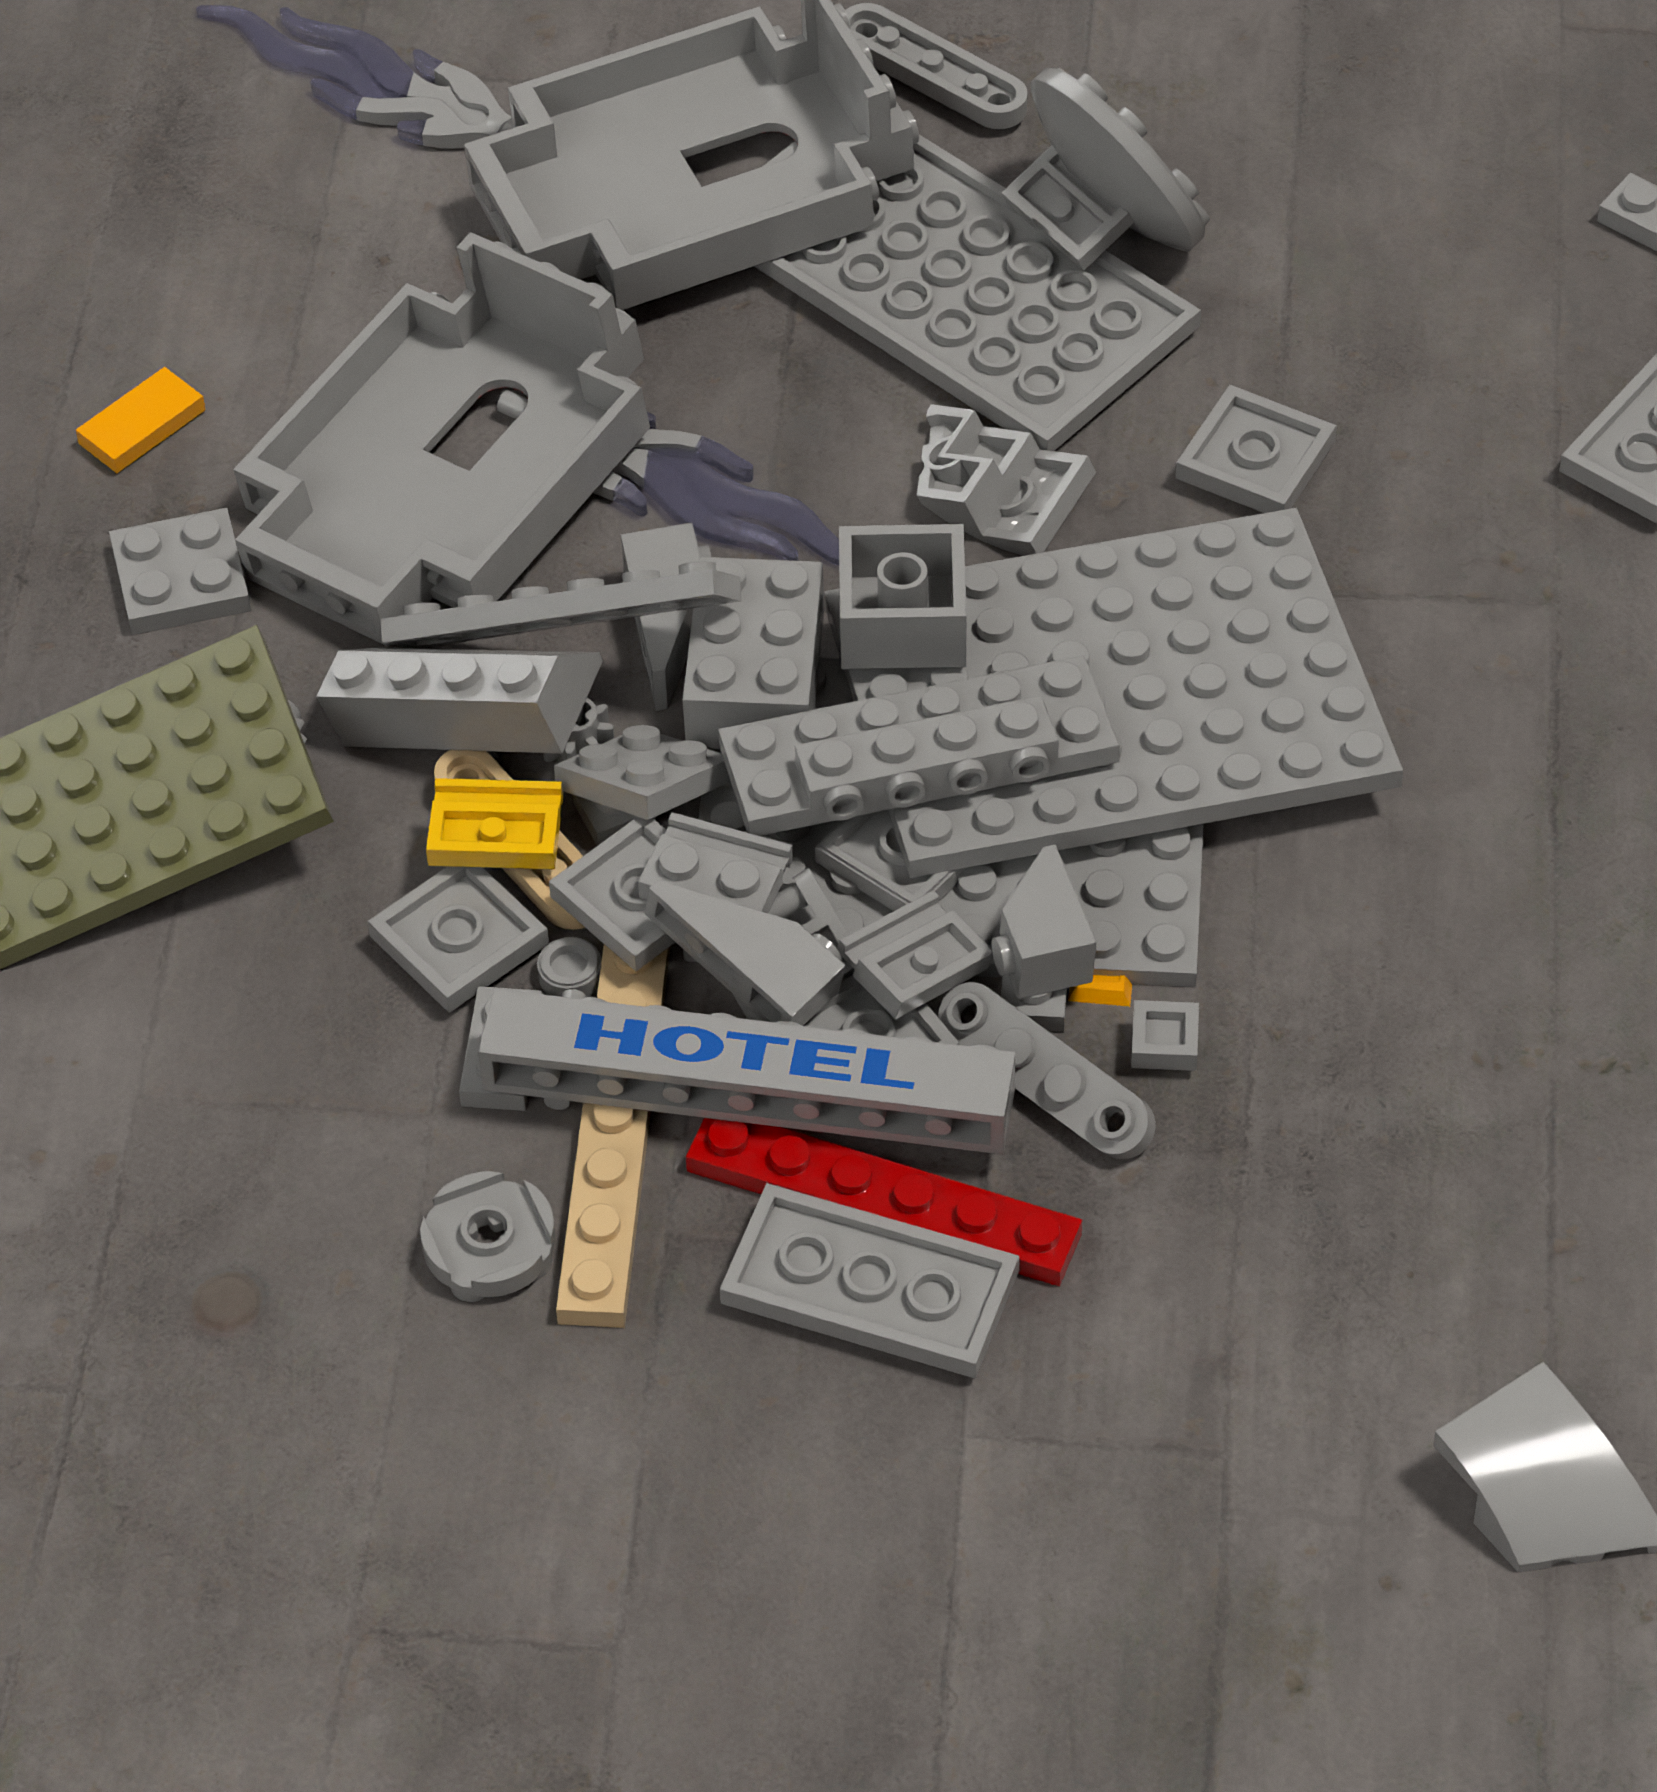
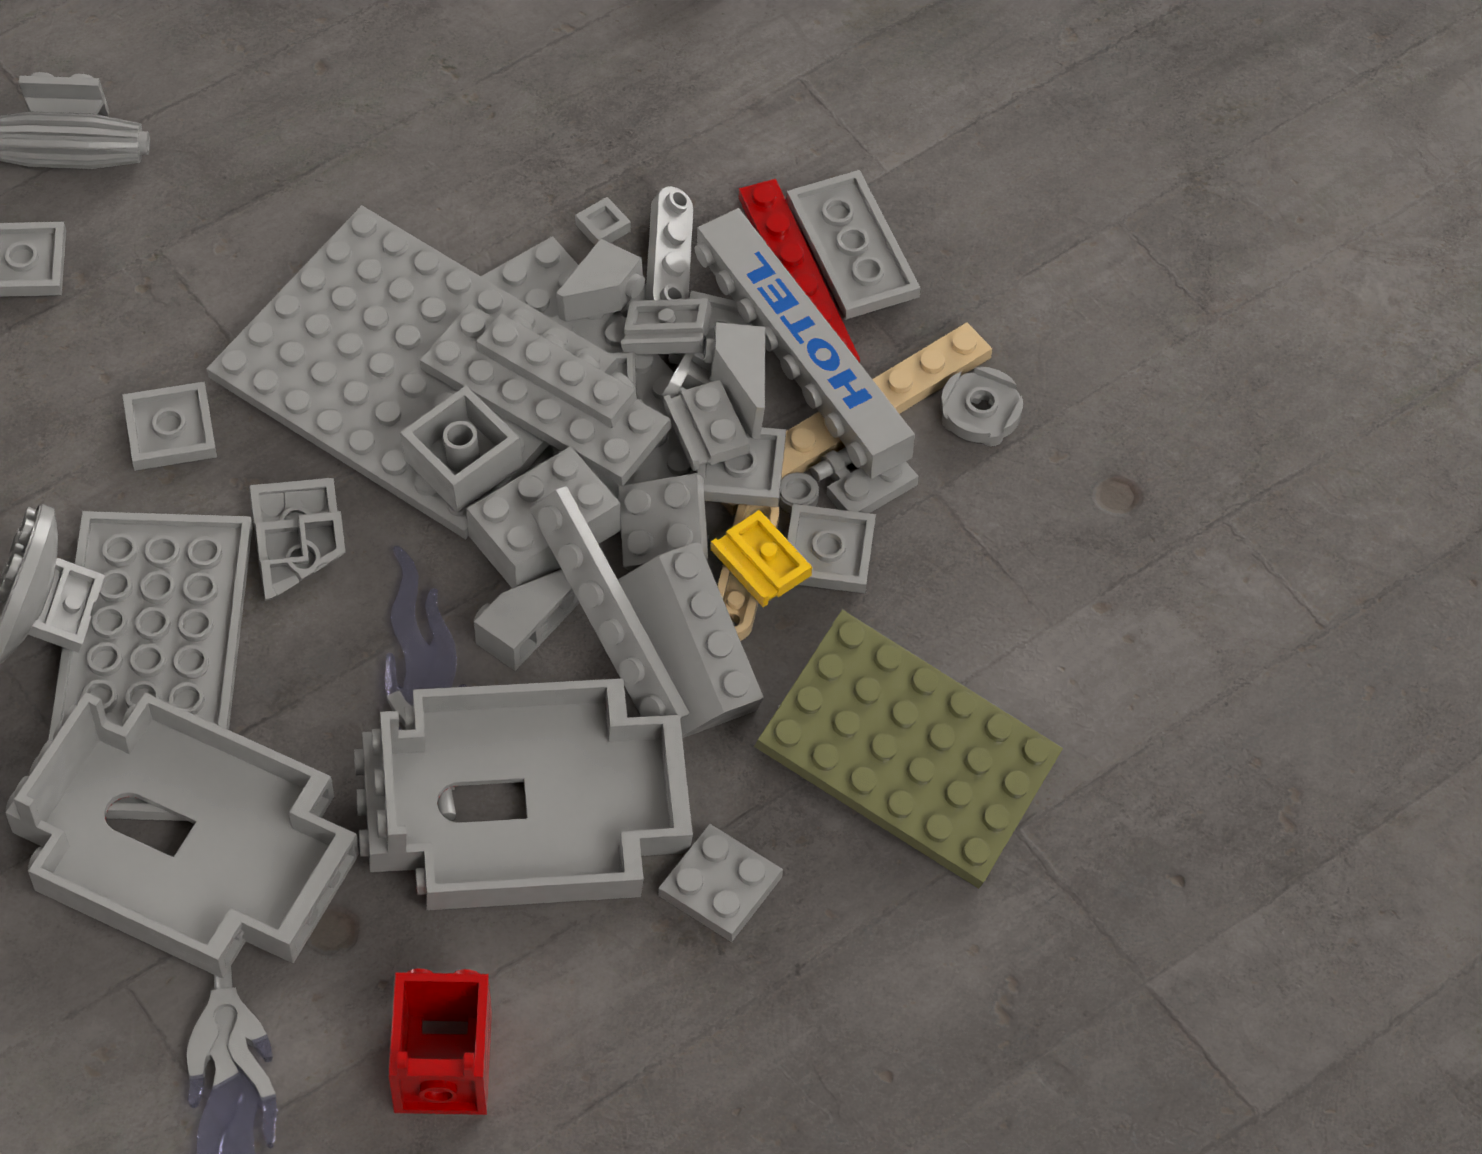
camera: 135 degrees left, 5 degrees up
(140, 419) = (631, 999): light orange tile -> none
(244, 214) = (440, 1069): none -> red container

